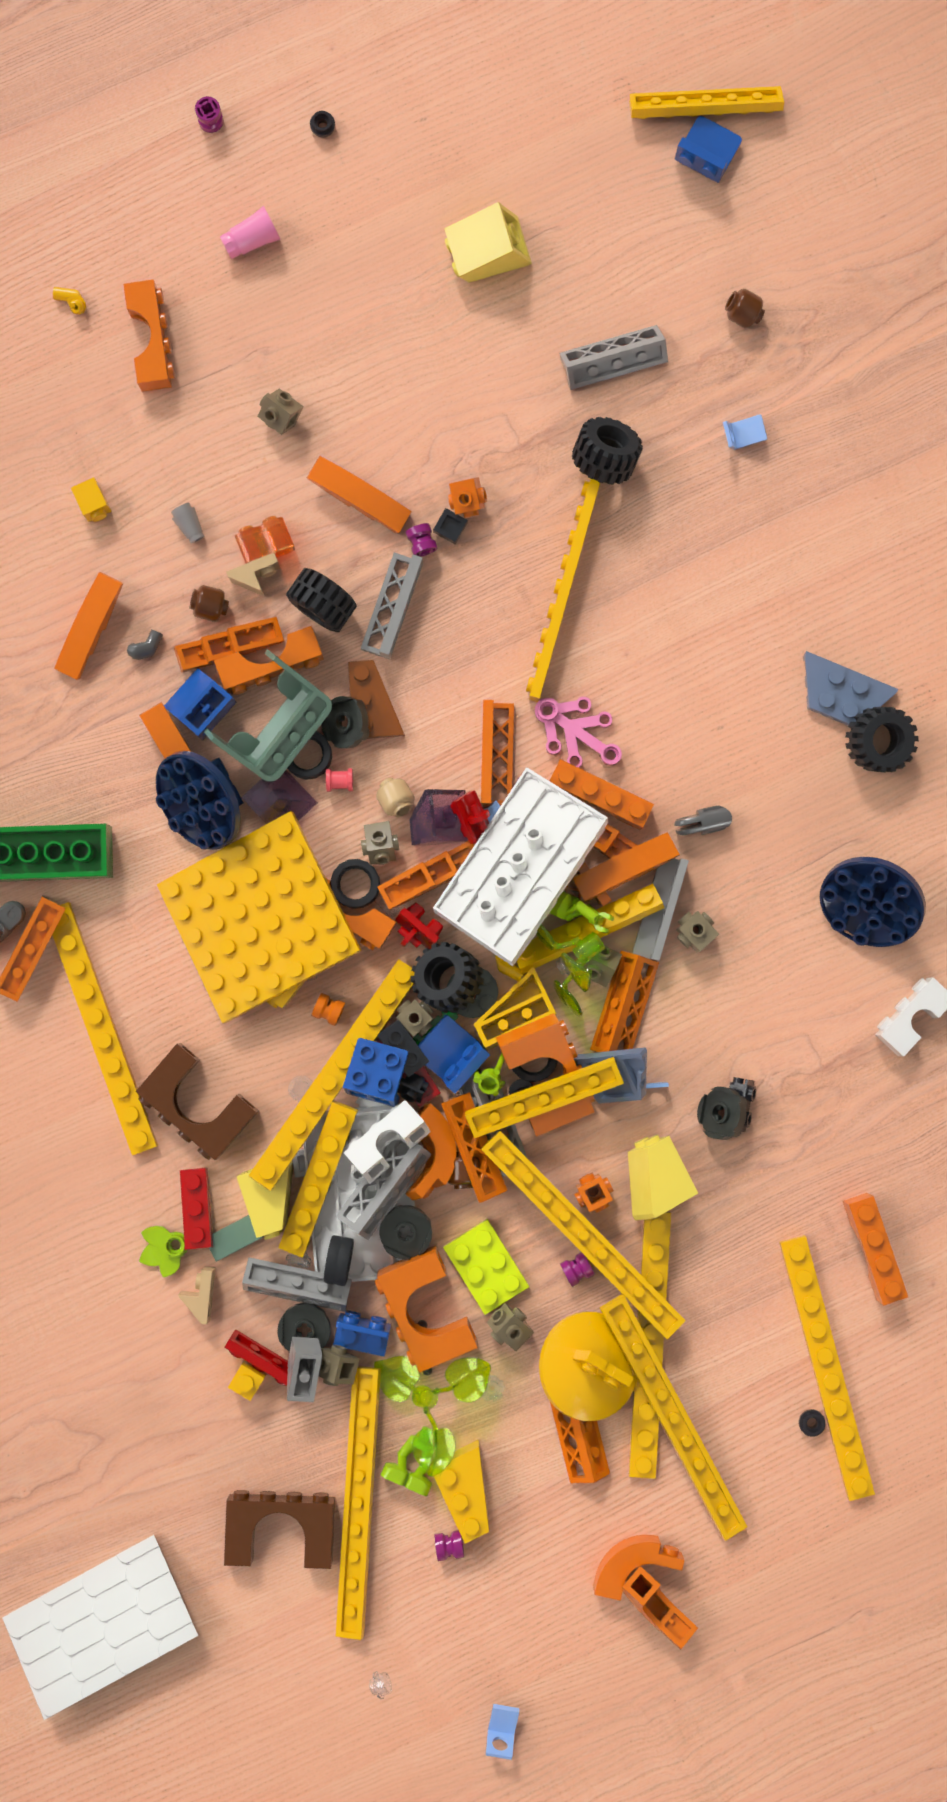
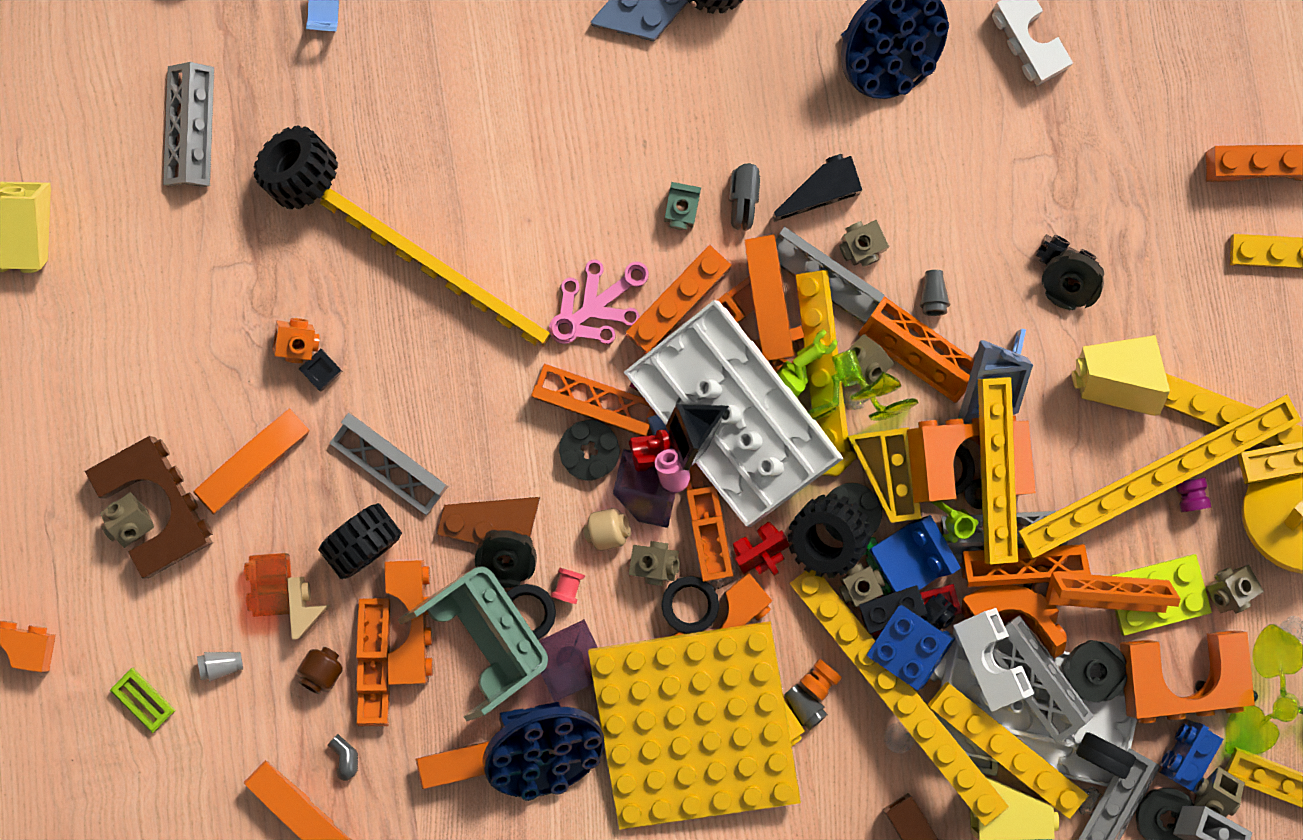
camera: 75 degrees left, 0 degrees up
(91, 500) = (157, 767): yellow brick -> none
(149, 477) = (124, 681): none -> lime tile
(200, 703) = (430, 716): blue slope -> none
(286, 459) = (184, 532): none -> reddish brown arch
(301, 1004) = (805, 707): none -> dark grey cone
(421, 540) = (326, 407): magenta wheel -> none
(445, 751) = (573, 457): none -> pearl dark grey plate
(458, 831) = (670, 471): none -> bright pink brick
(474, 1223) = (1111, 592): none -> orange fence
(496, 837) = (693, 430): none -> black slope
(601, 1199) = (1126, 446): orange brick -> none
(674, 1003) = (934, 294): none -> dark grey cone
(689, 777) = (682, 192): none -> sand green brick
(733, 885) = (829, 184): none -> black slope

